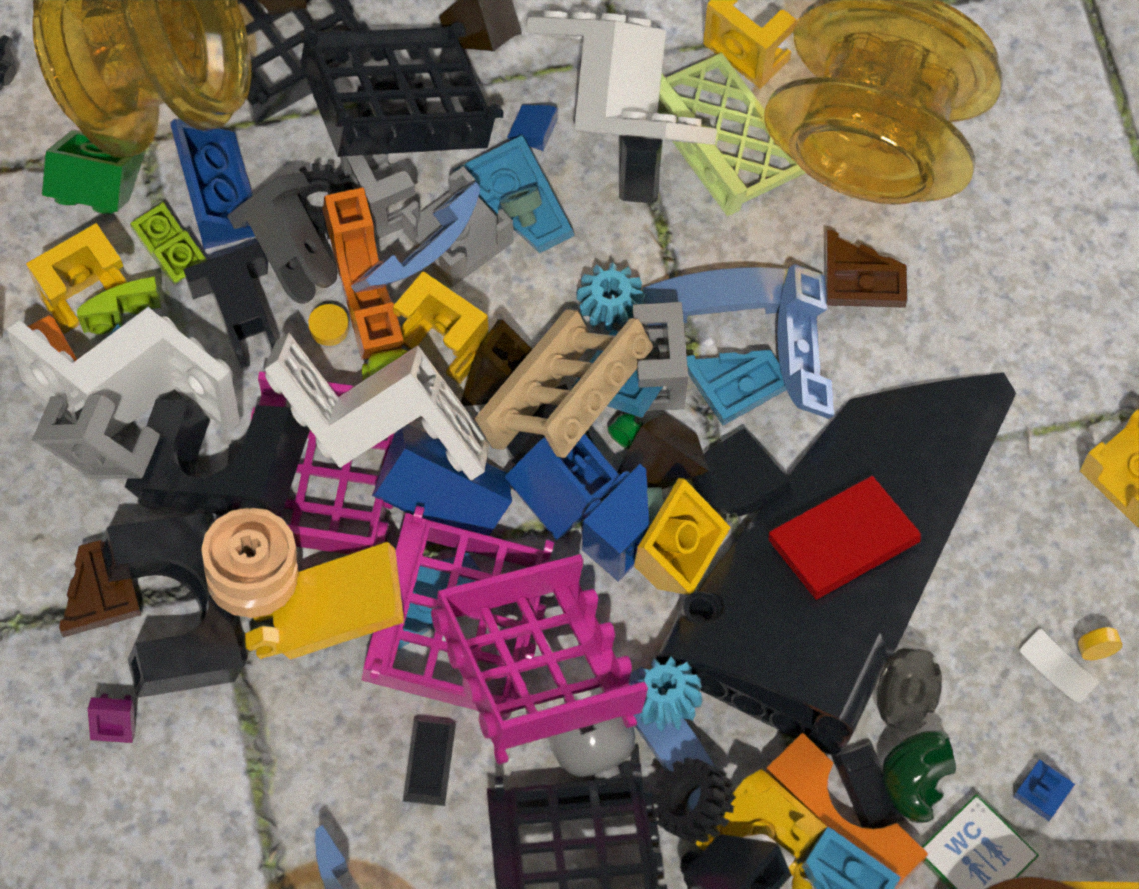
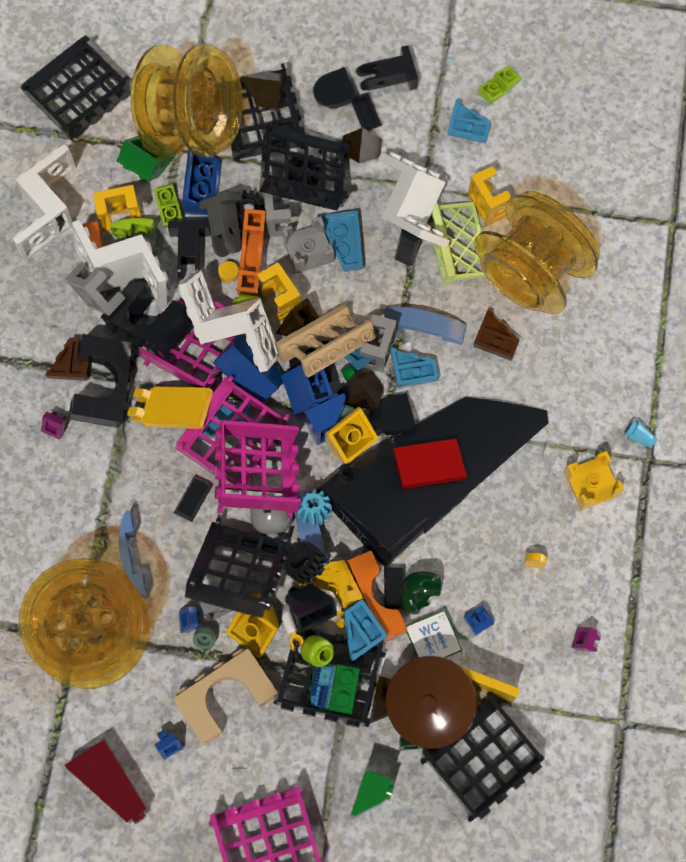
camera: 20 degrees right, 5 degrees up
(250, 562) = (142, 374): light nougat wheel -> none
(452, 216) = (306, 239): medium blue slope -> none
(522, 205) = (342, 245): sand green tile -> none
(535, 125) = (366, 207): blue slope -> none
(605, 284) = (368, 298): medium azure gear -> none
(798, 345) = (450, 360): medium blue slope -> none
(908, 689) = (431, 547): clear smoke tile -> none
(1058, 666) = (512, 563): white sticker -> none

